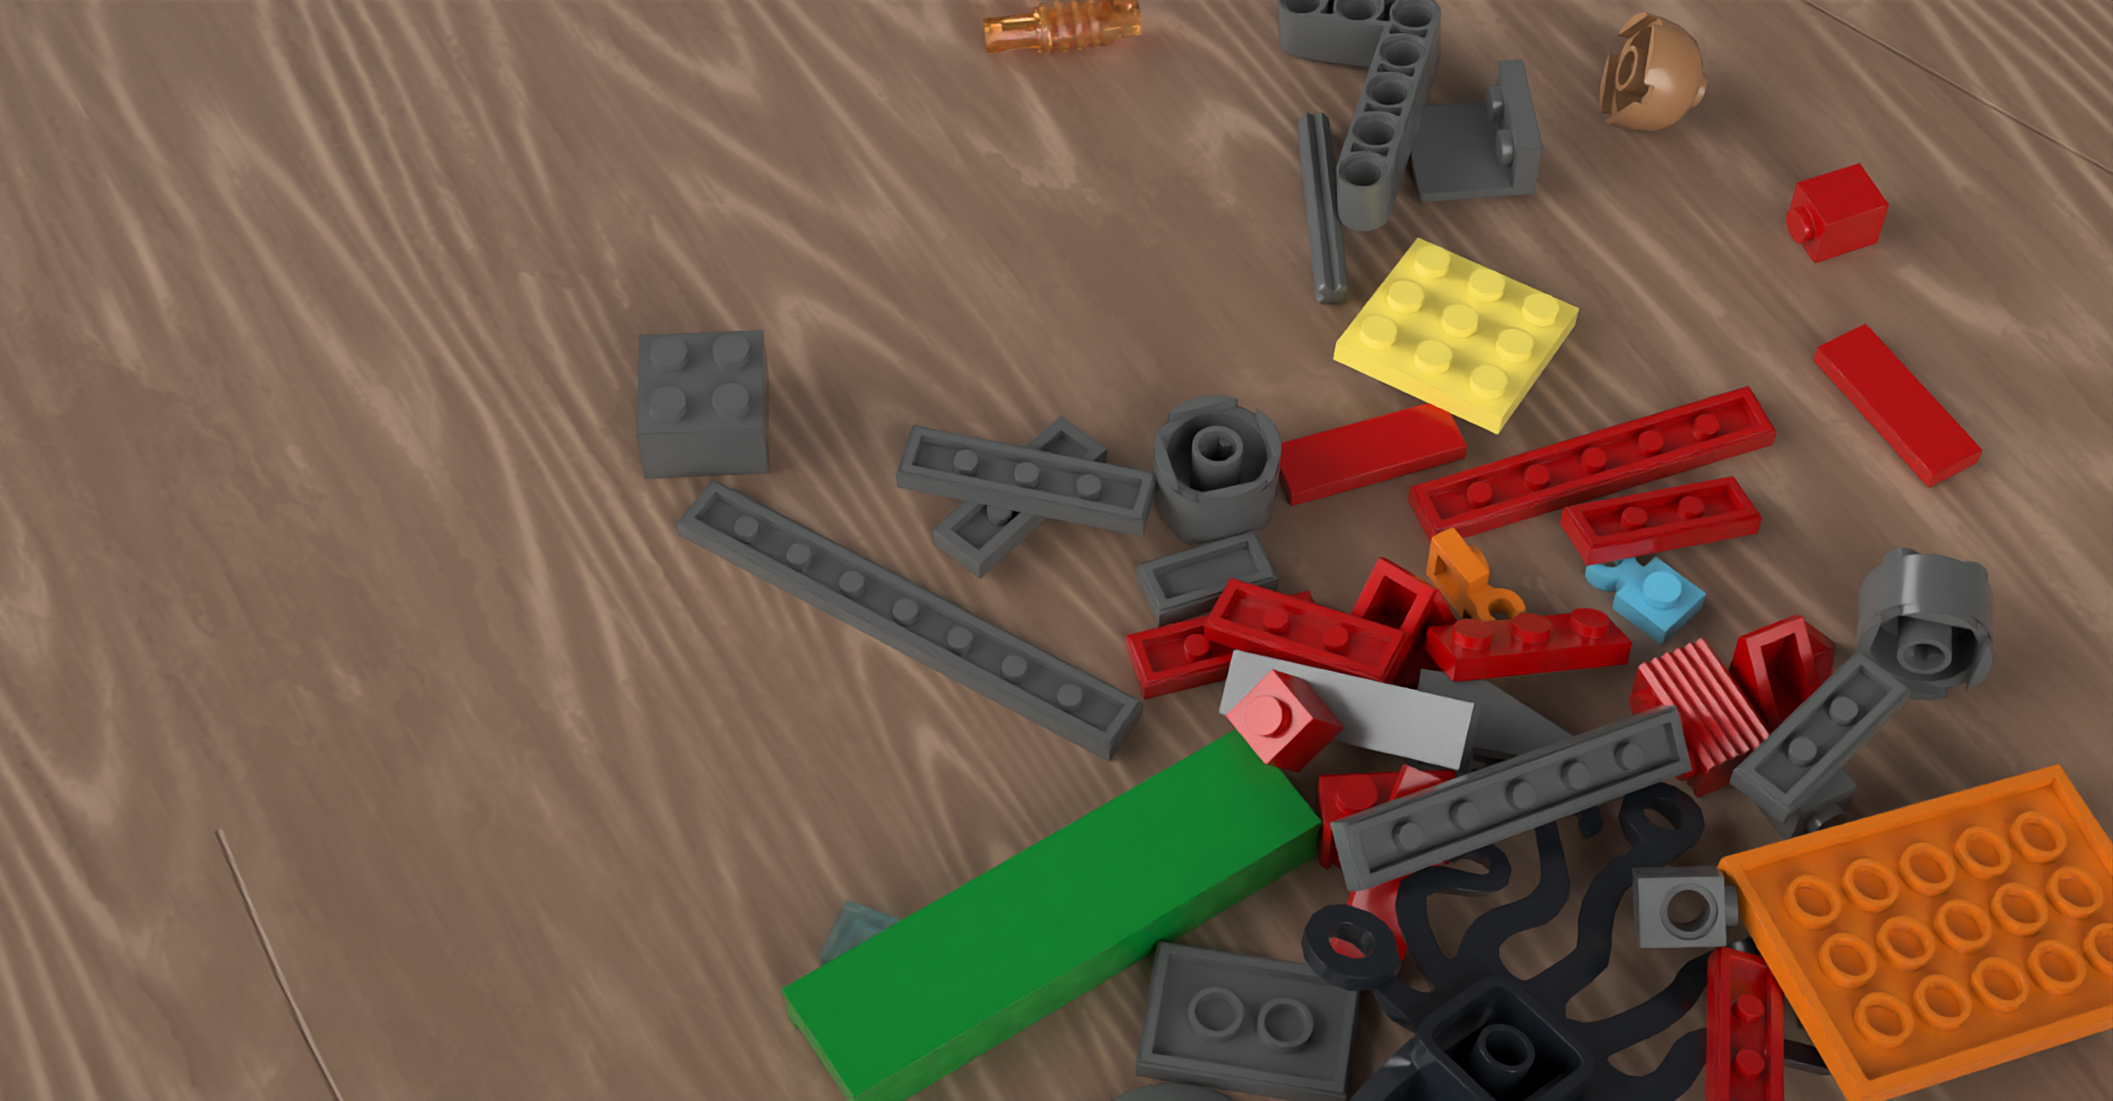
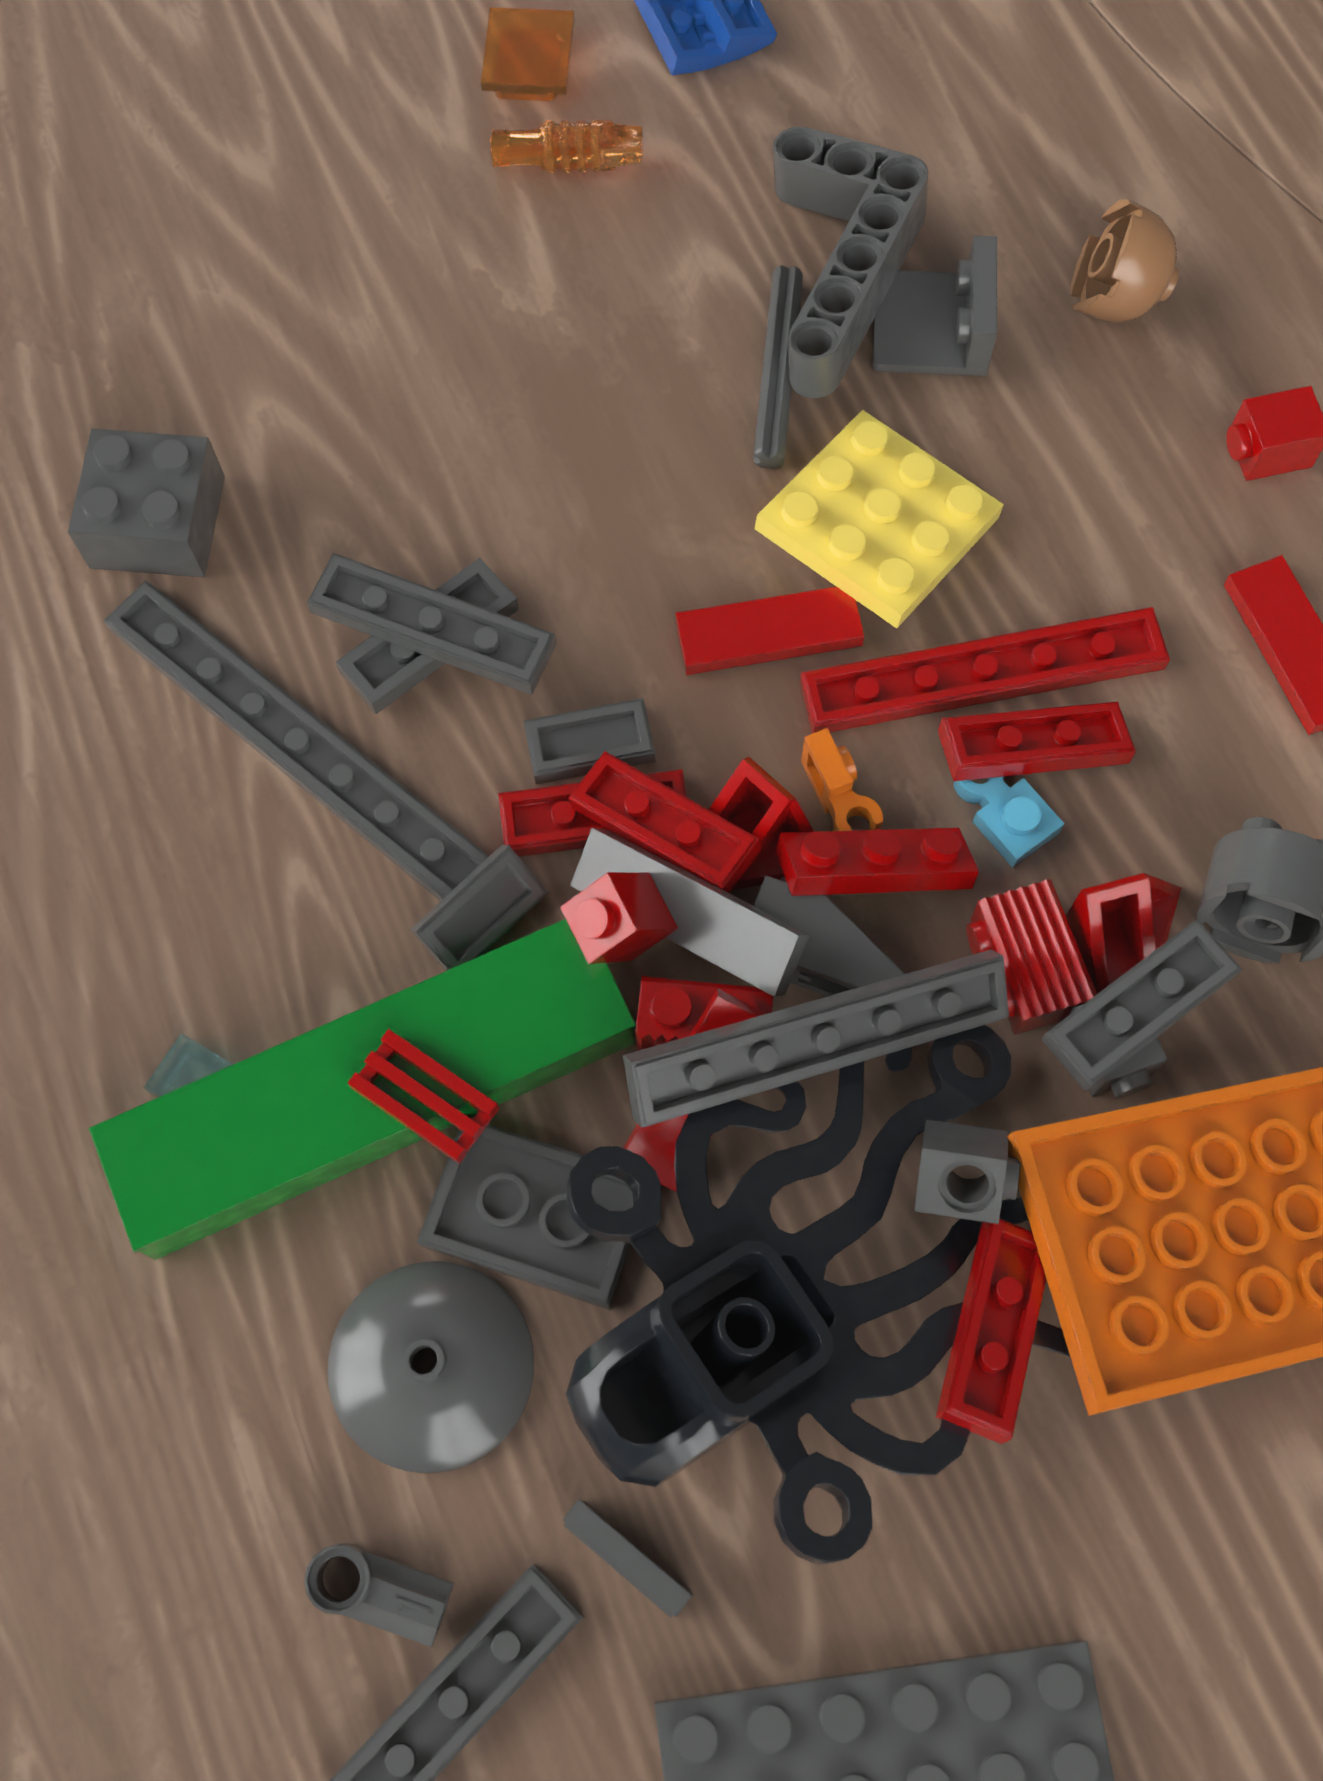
camera: 10 degrees right, 15 degrees up
(1132, 742) = (479, 909): none -> dark grey tile
(1133, 887) = (379, 1063): none -> red tile
(1216, 469) = (613, 634): dark grey brick -> none

